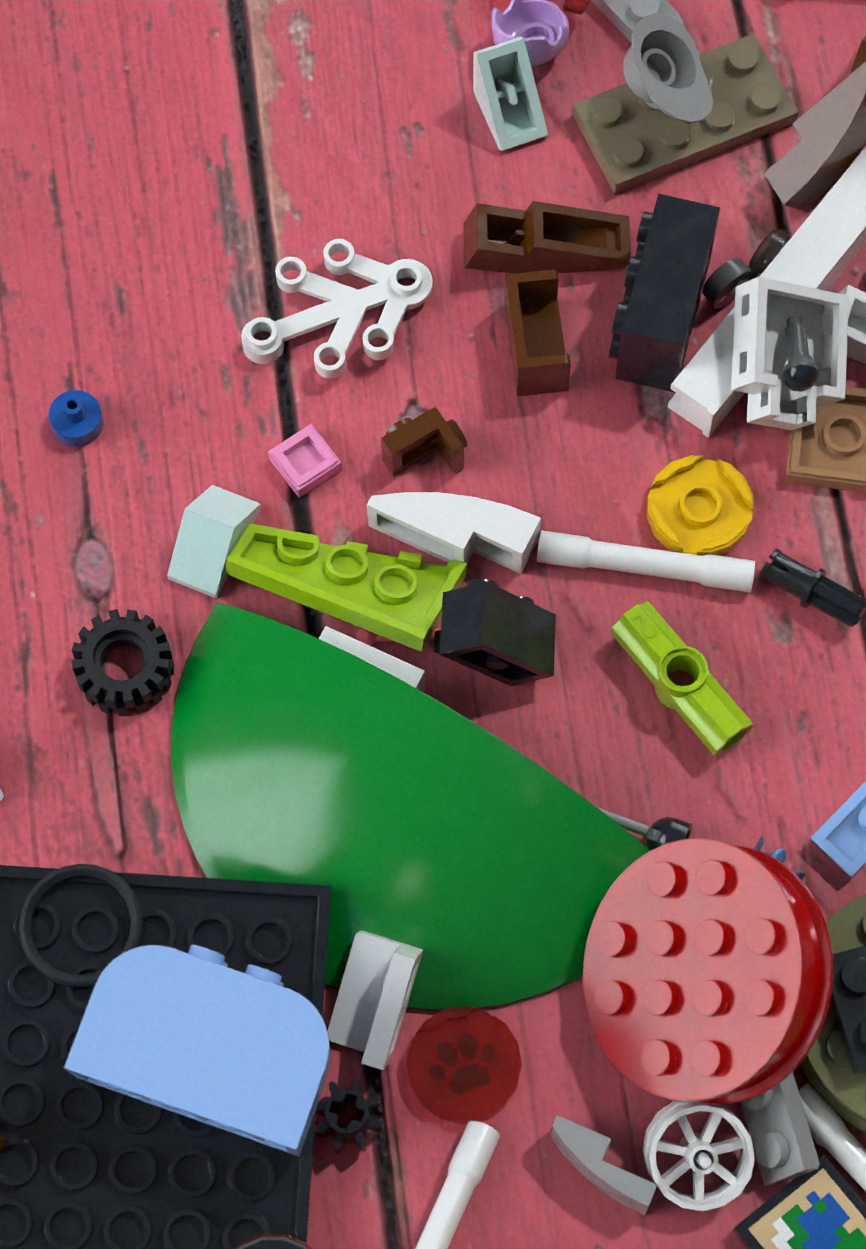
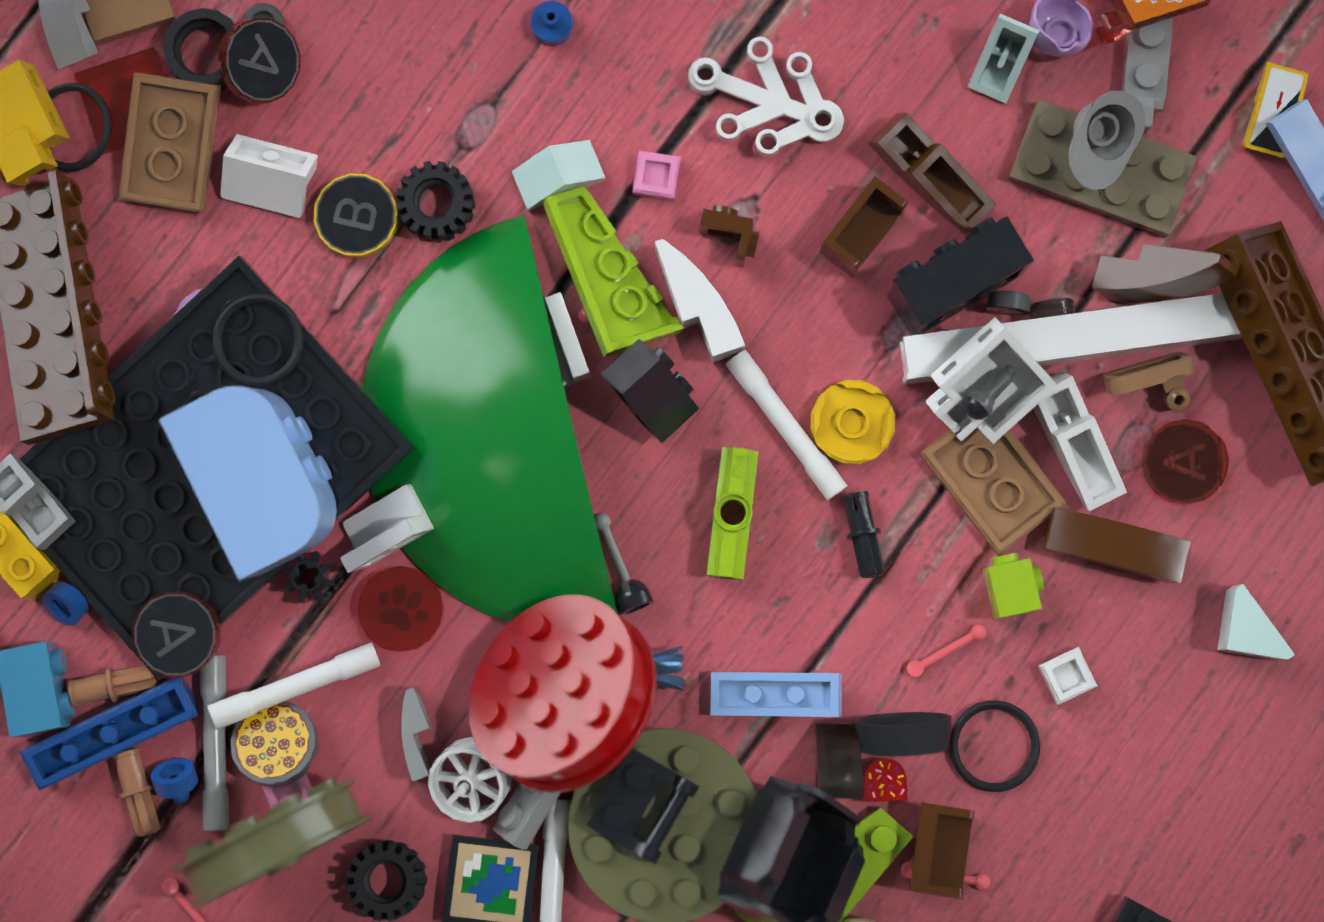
camera: 45 degrees right, 15 degrees up
(57, 746) = (356, 215): none -> black tile

